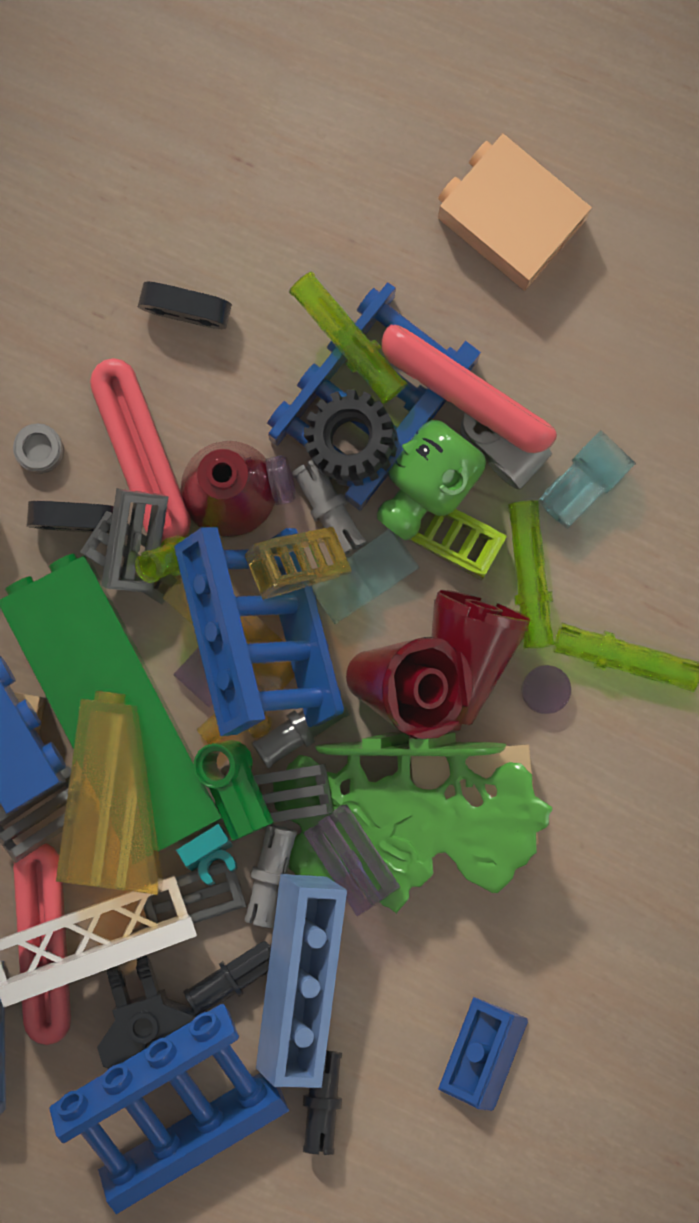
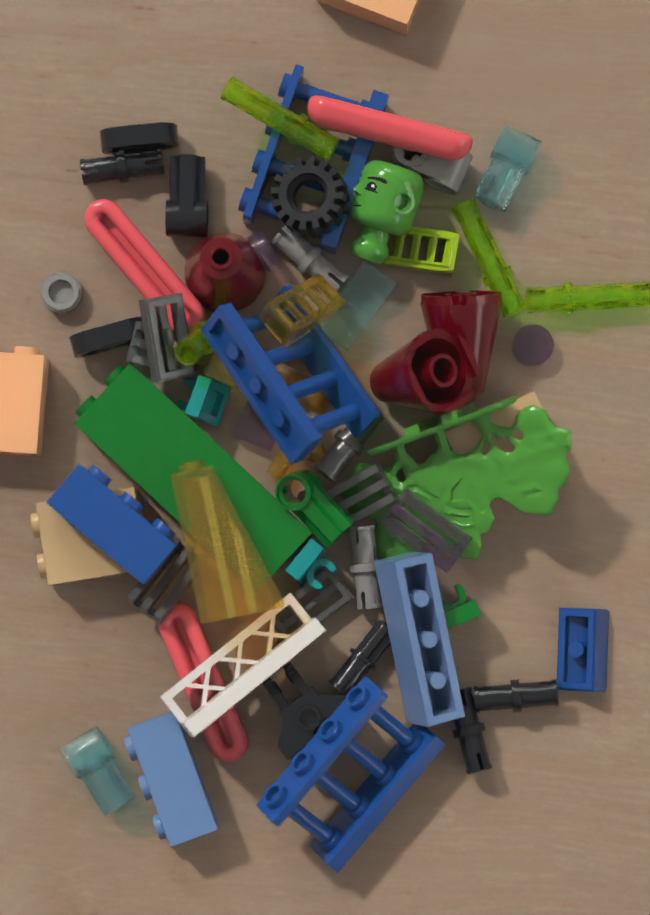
camera: 20 degrees left, 0 degrees up
(155, 330) = (122, 166): none -> black pin
(156, 626) = (206, 400): none -> teal tile
(211, 401) = (187, 208): none -> black piece
(359, 963) = (459, 611): none -> green tile
(389, 1081) = (516, 696): none -> black pin

